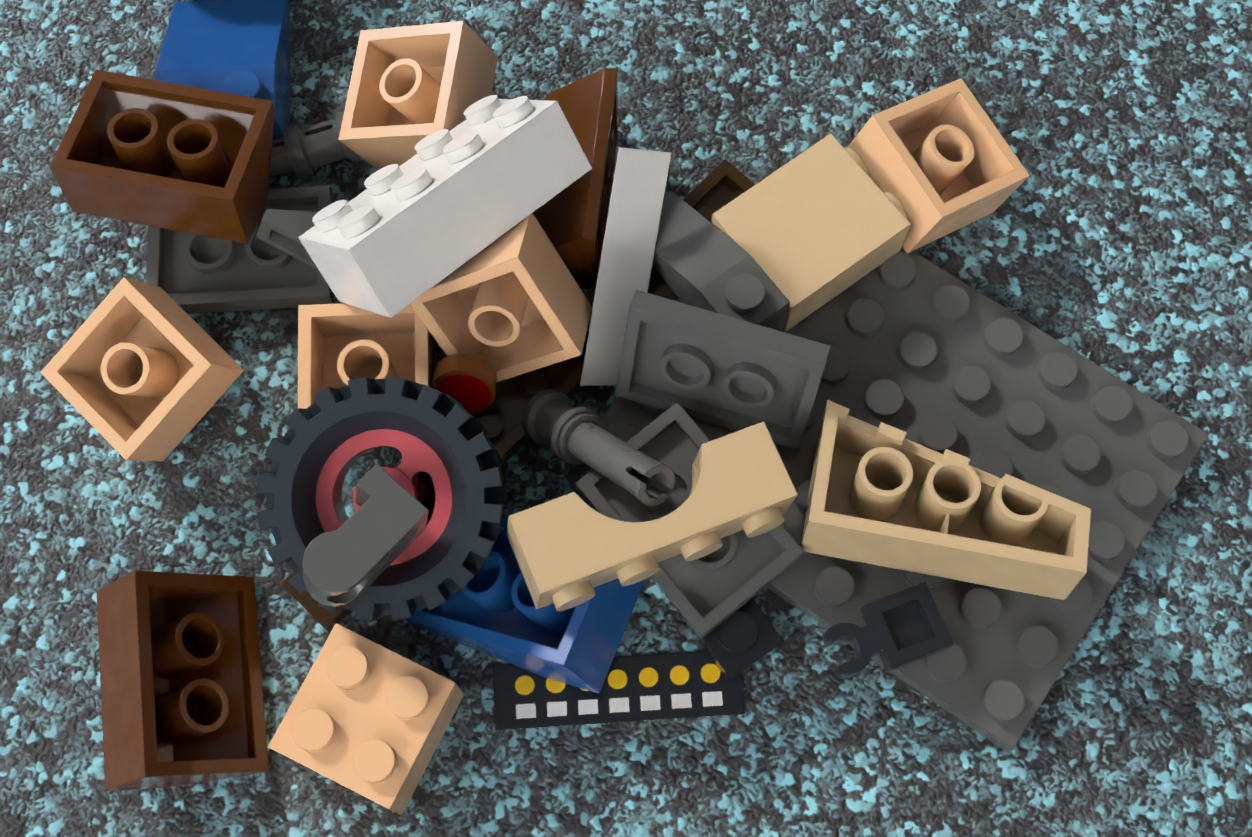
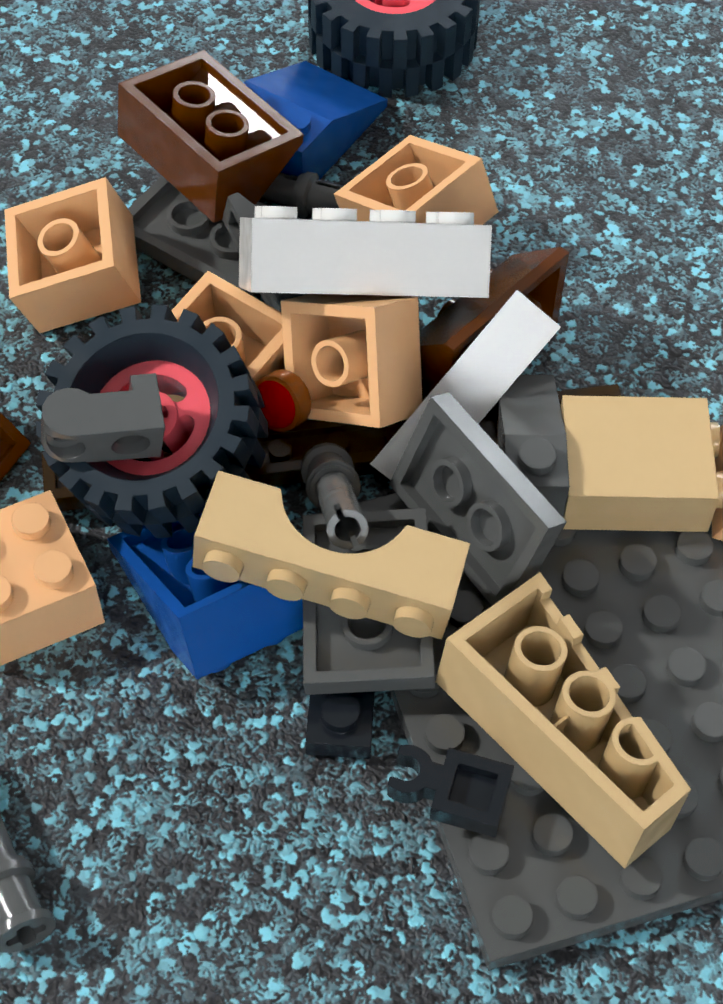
camera: 35 degrees right, 15 degrees down
(632, 691) = (219, 702): black sticker -> none

